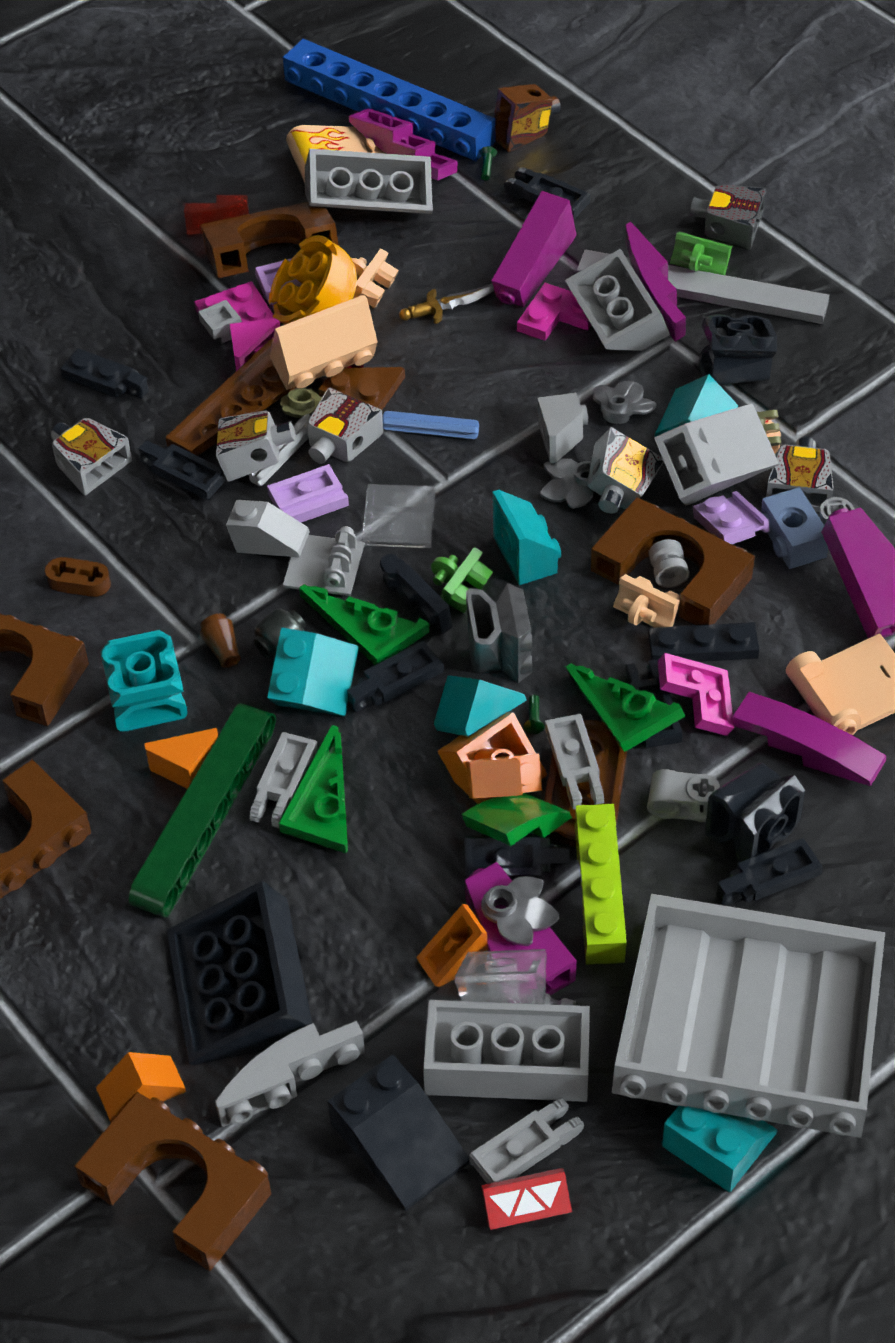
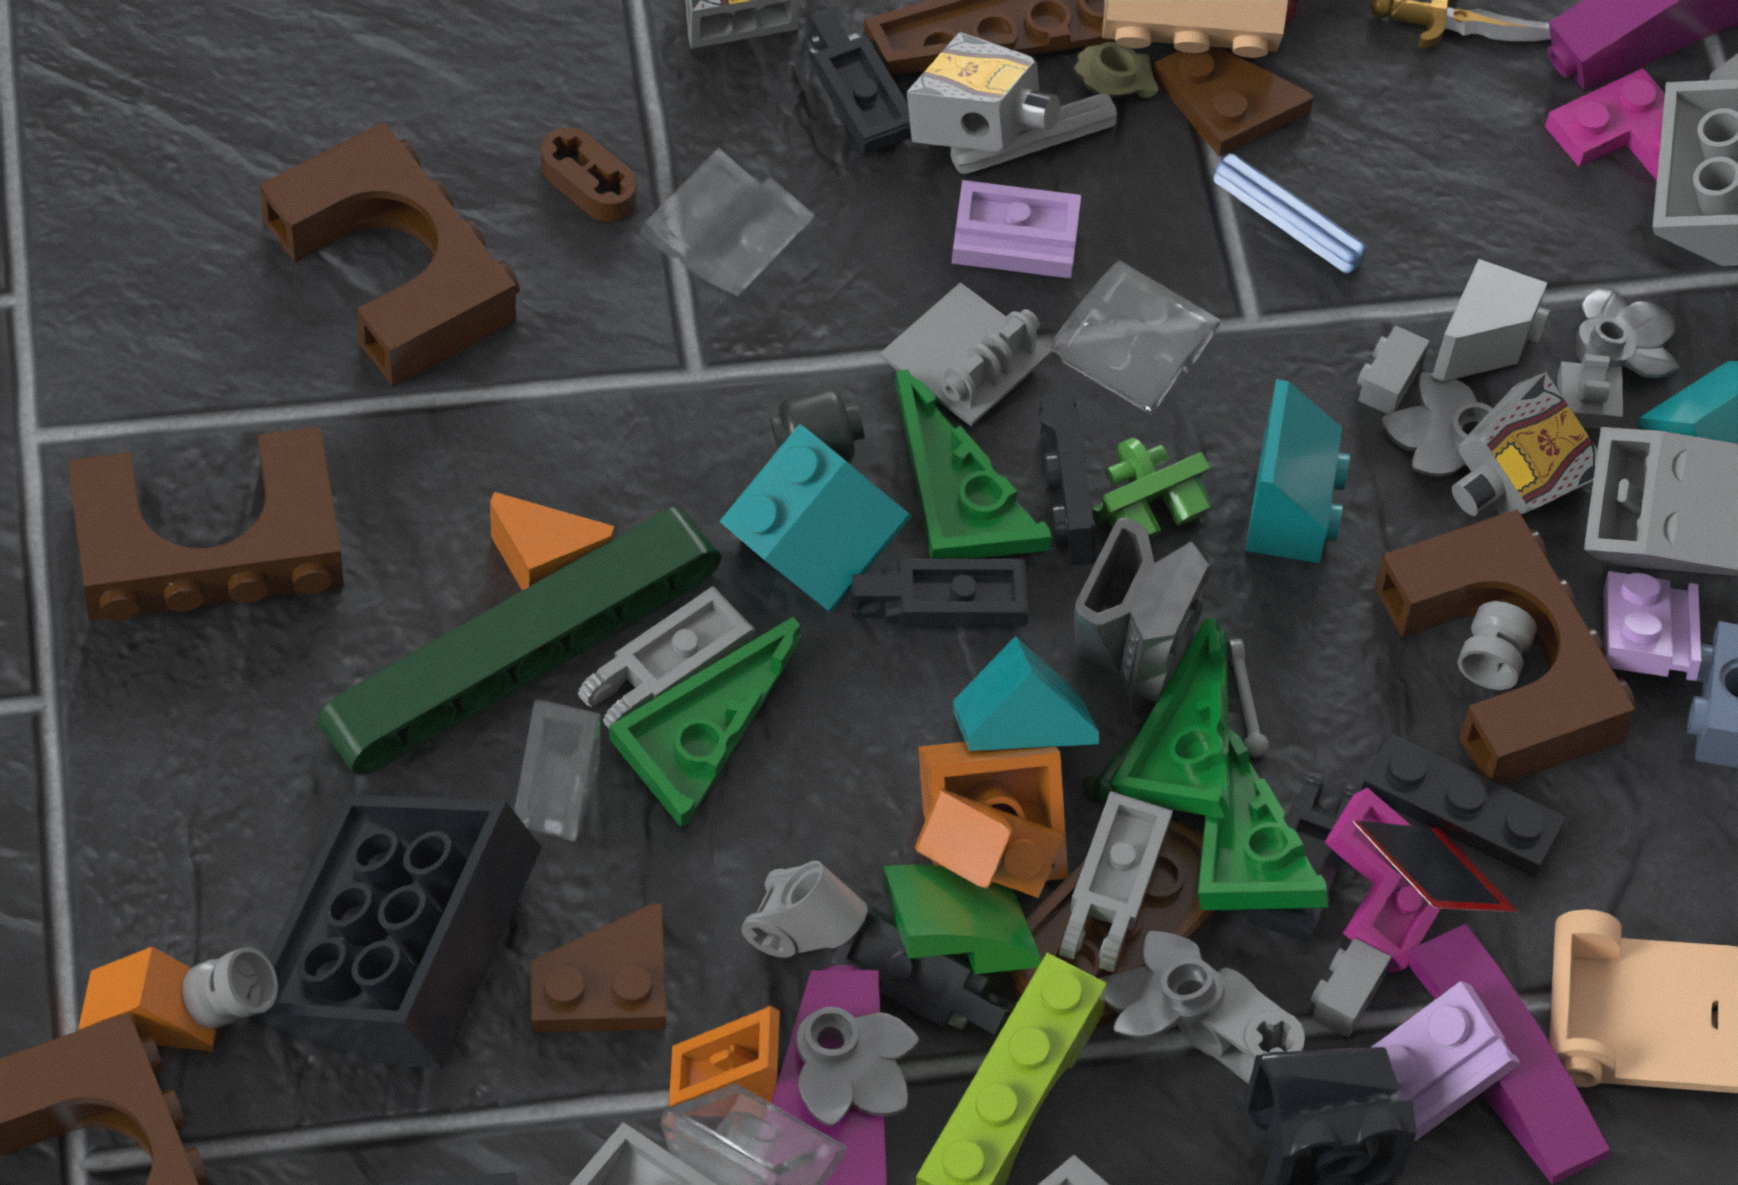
camera: 25 degrees right, 5 degrees up
(143, 680) = (560, 392): teal piece -> none
(164, 565) = (726, 224): none -> clear slope
(175, 1056) = (230, 988): none -> light grey wheel
(220, 638) = (727, 385): reddish brown cone -> none
(265, 530) = (909, 251): light grey slope -> none
(268, 854) = (558, 769): none -> clear slope
(272, 1074) = (337, 1098): light grey slope -> none
(342, 427) = (1144, 145): light grey torso -> none
(360, 945) = (603, 979): none -> reddish brown wing
(439, 855) = (804, 912): none -> light grey piece
(529, 468) = (1393, 370): none -> light grey piece
(551, 632) = (1256, 743): none -> light grey hinge
(558, 682) = (1184, 744): none -> green wing
(629, 427) = (1592, 391): none -> light grey tile
(637, 794) = (1165, 991): none -> flat silver plate
(646, 603) = (1410, 690): light nougat hips -> none
(715, 750) = (1350, 988): none -> light grey piece
(724, 669) = (1435, 867): none -> black sticker
(786, 748) = (1447, 1055): none -> lavender plate

